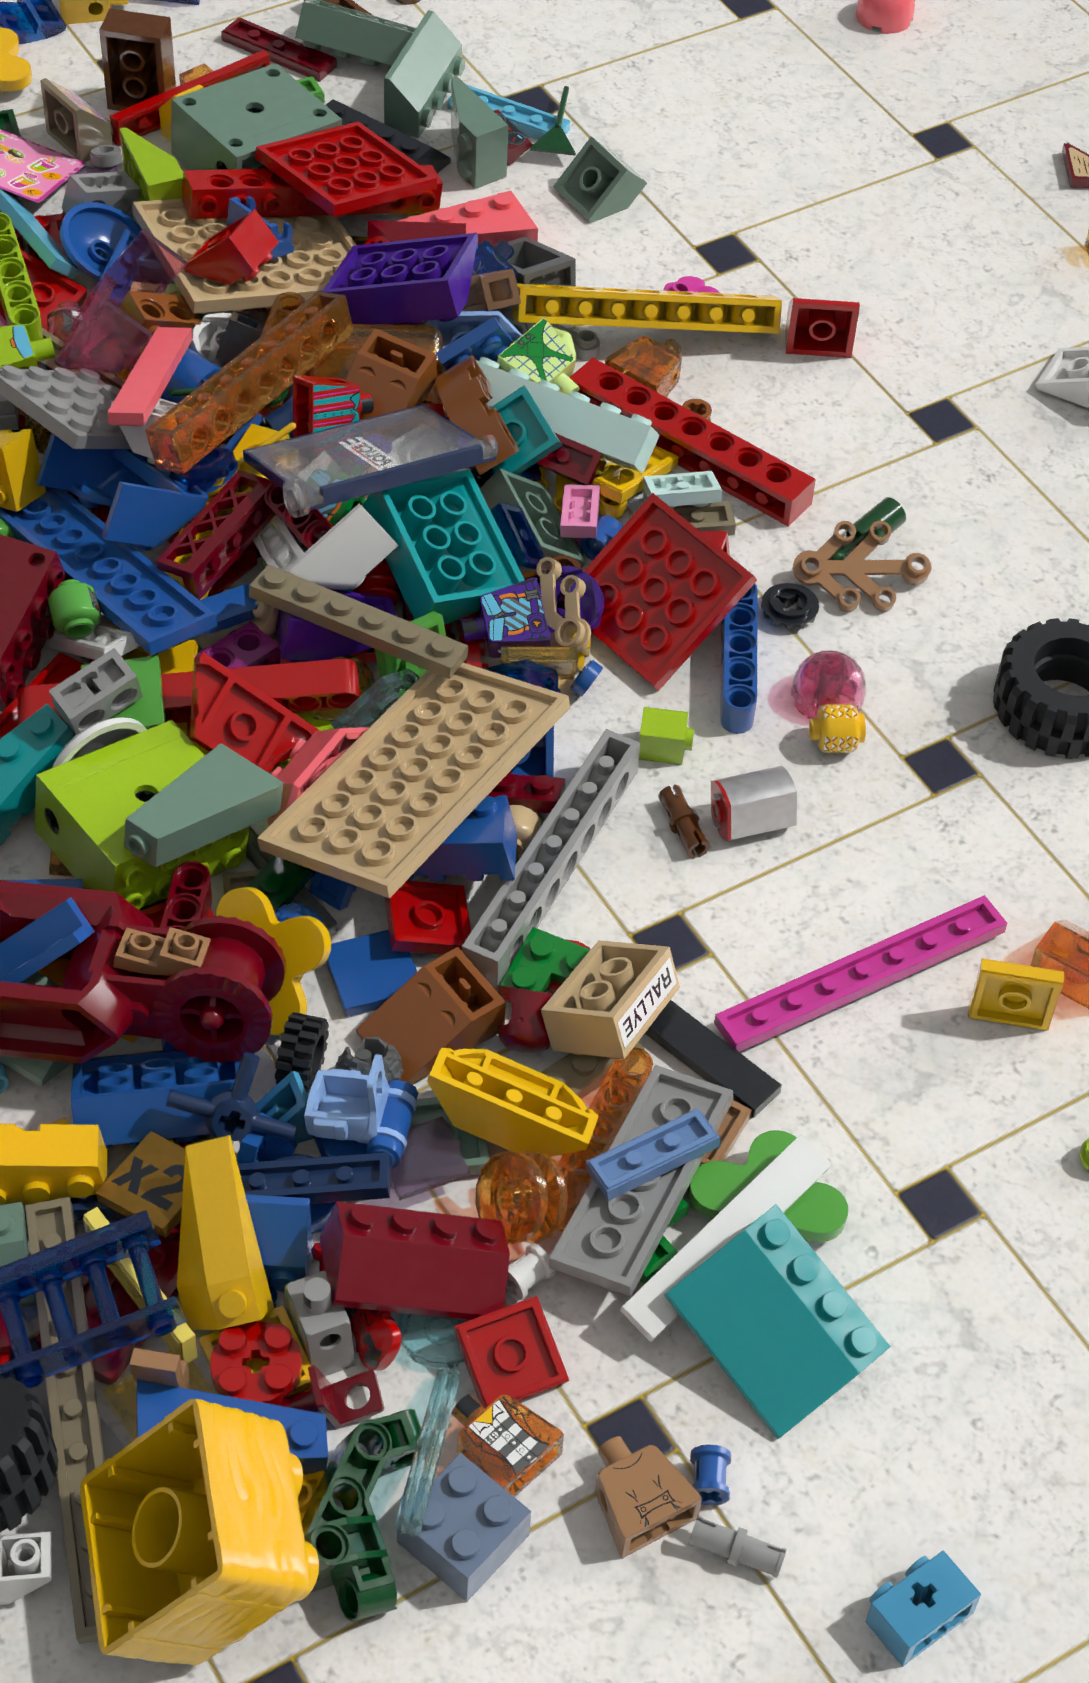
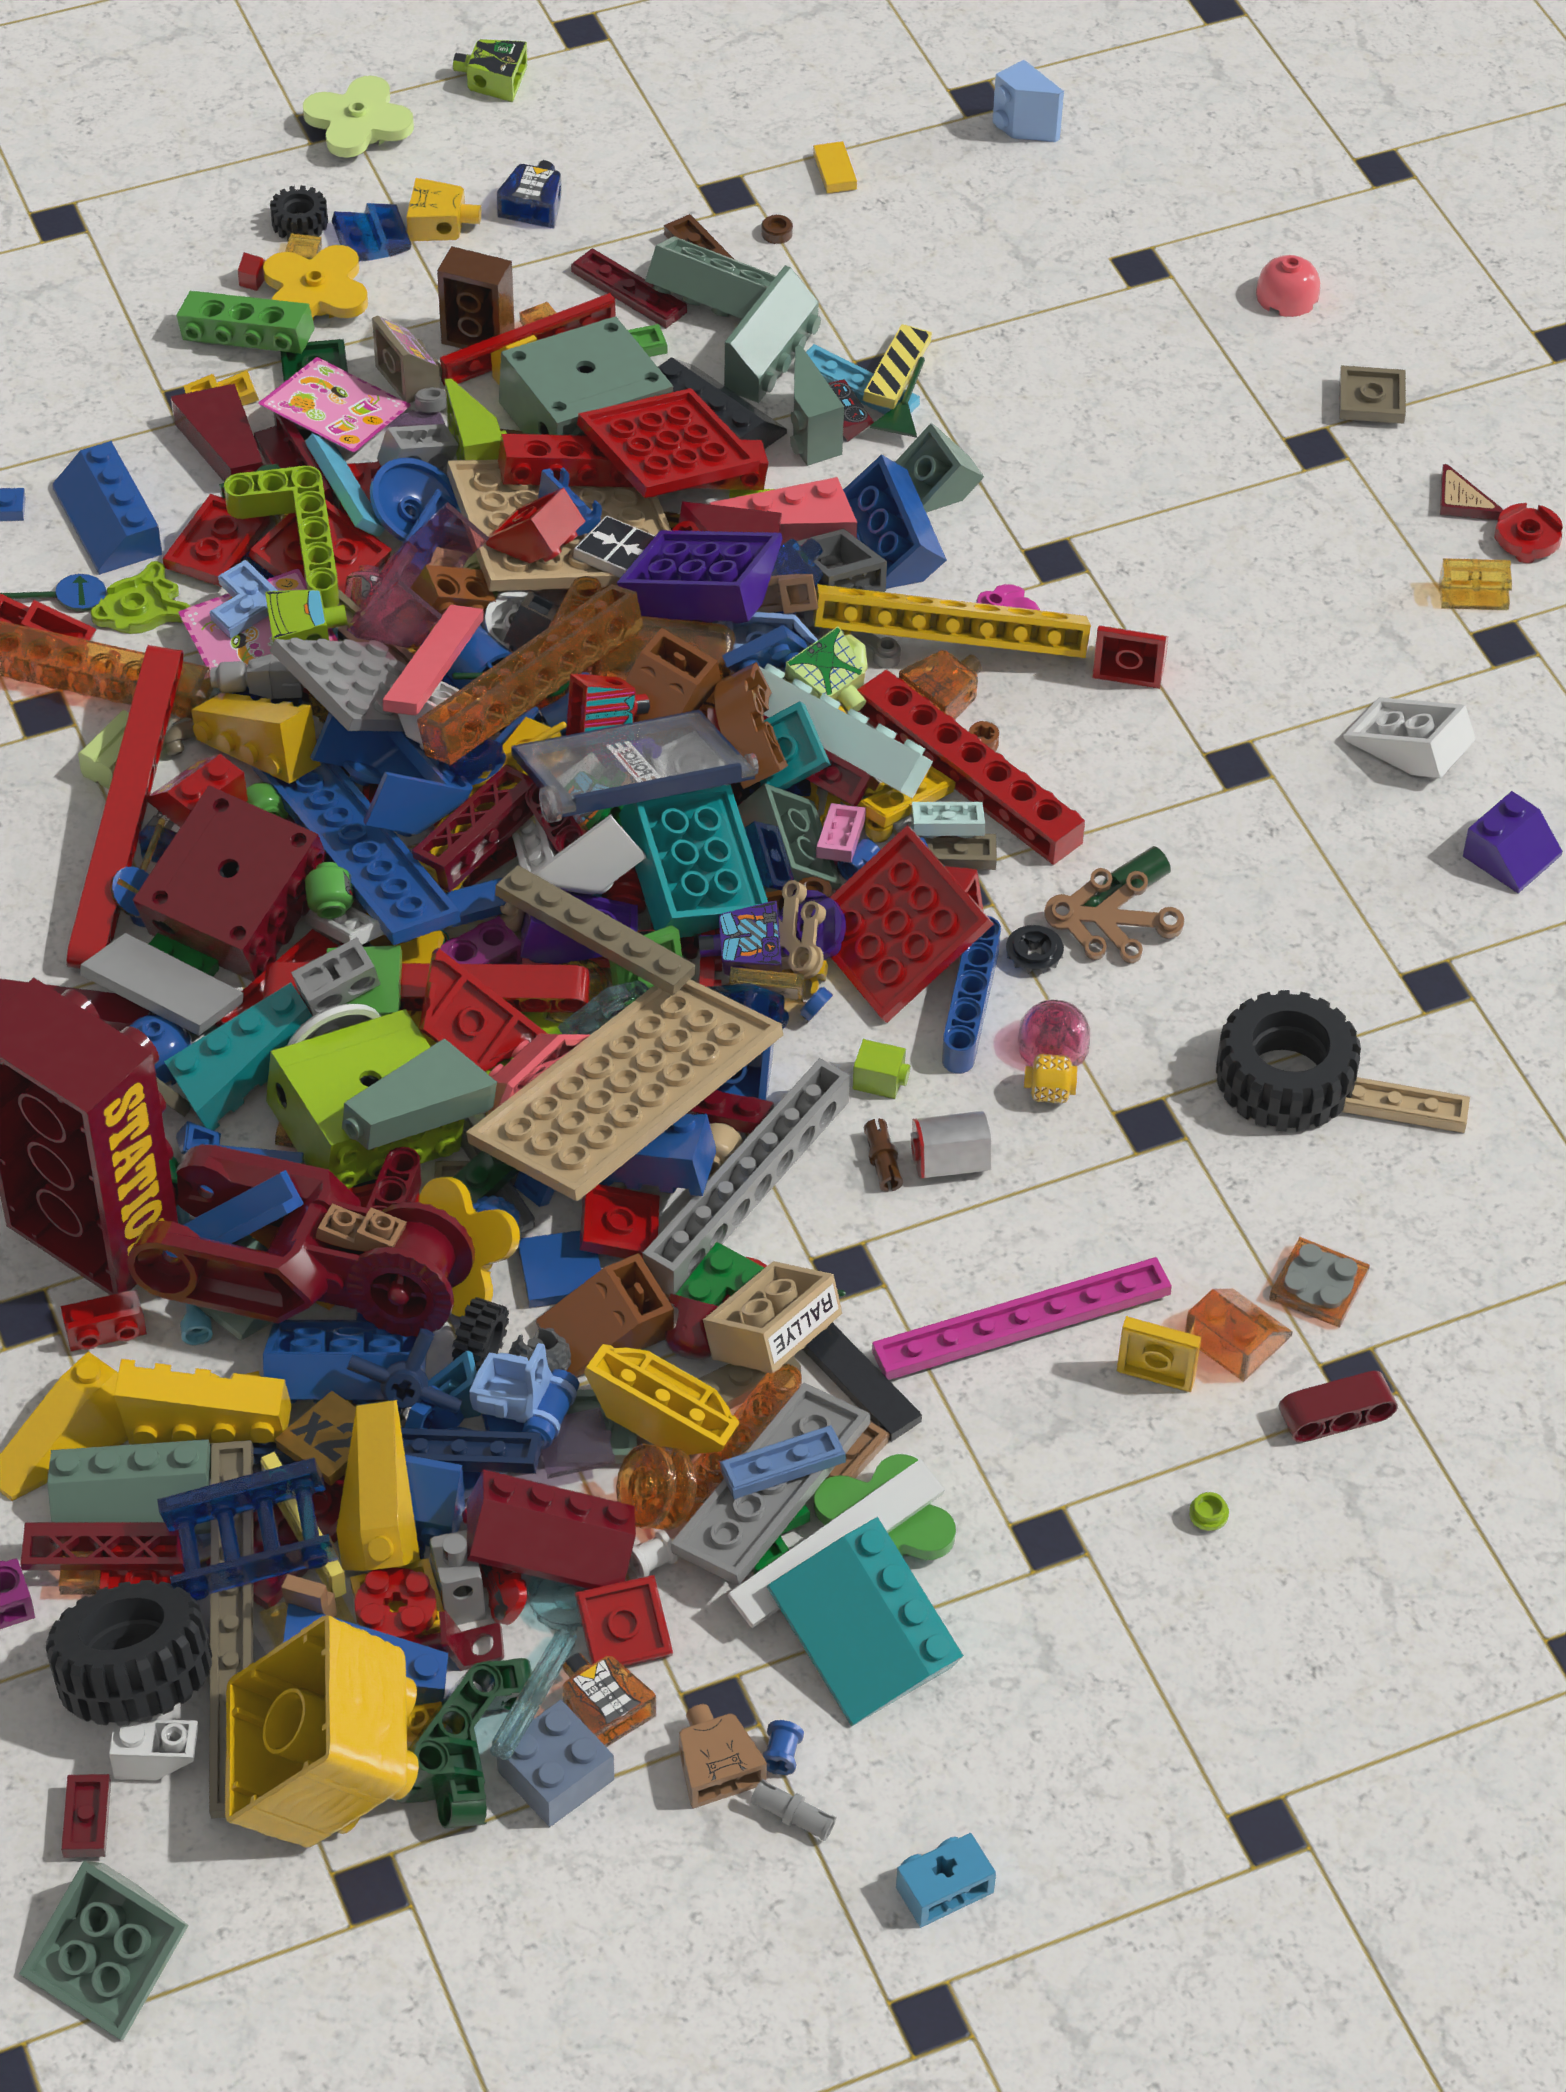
camera: 10 degrees right, 0 degrees up
(307, 265) = (612, 546): none -> black tile
(544, 96) = (897, 366): none -> light yellow tile
(572, 227) = (894, 522): none -> blue slope
(984, 90) = (1372, 394): none -> dark tan plate

